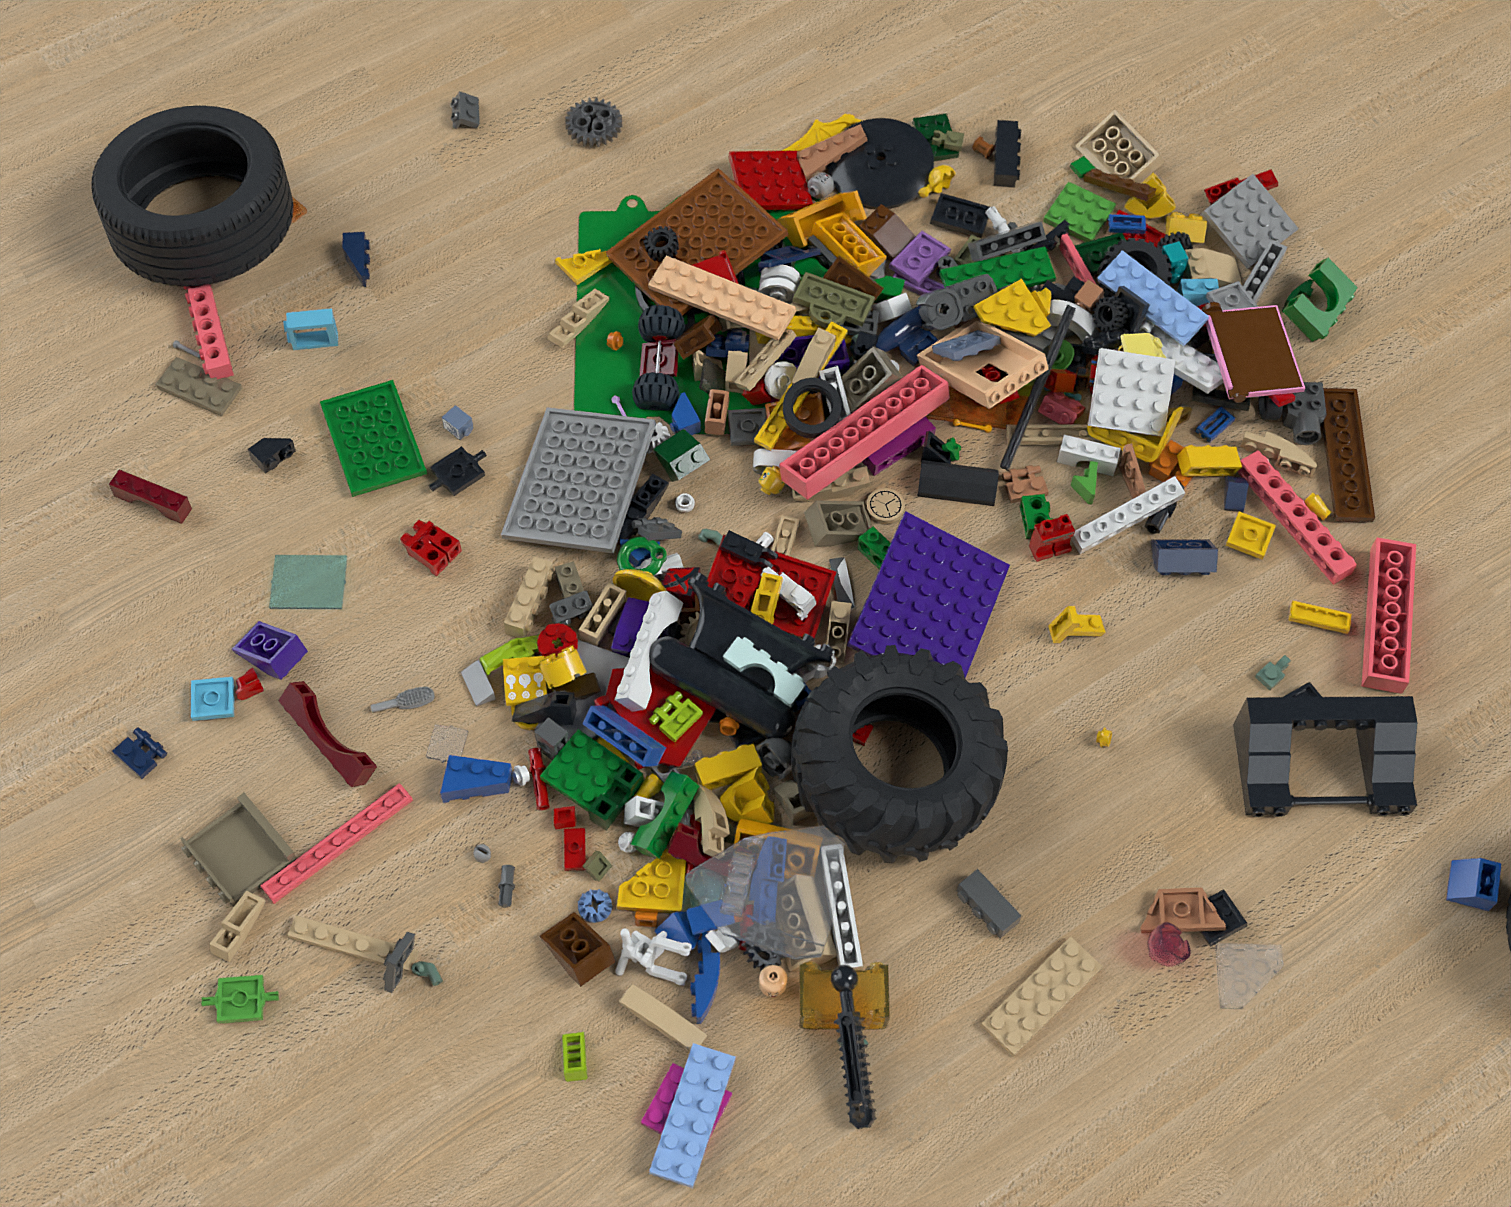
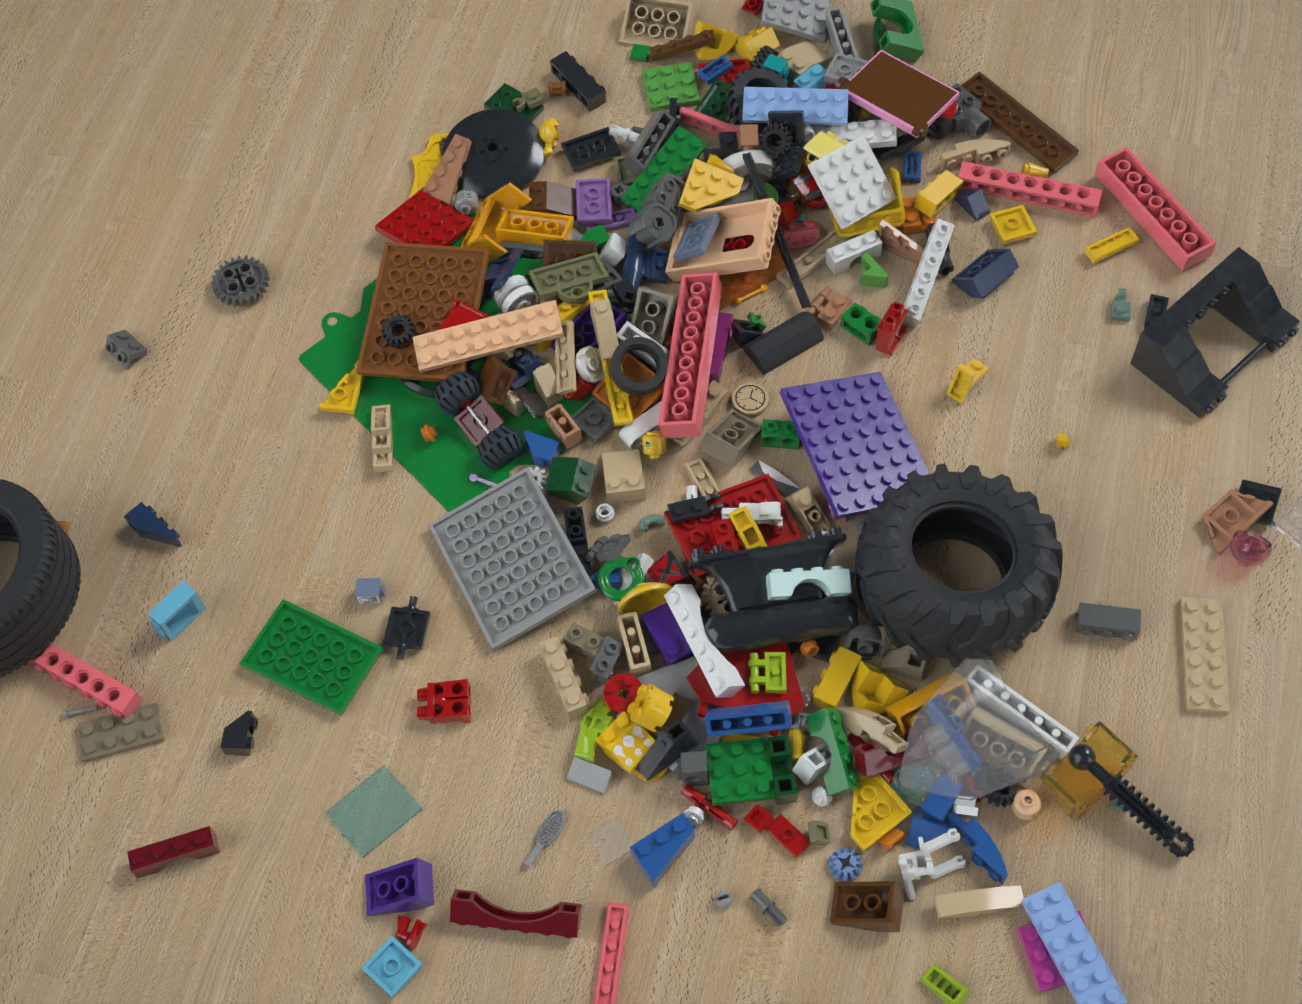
camera: 35 degrees left, 0 degrees up
(725, 486) = (623, 476): none -> tan slope

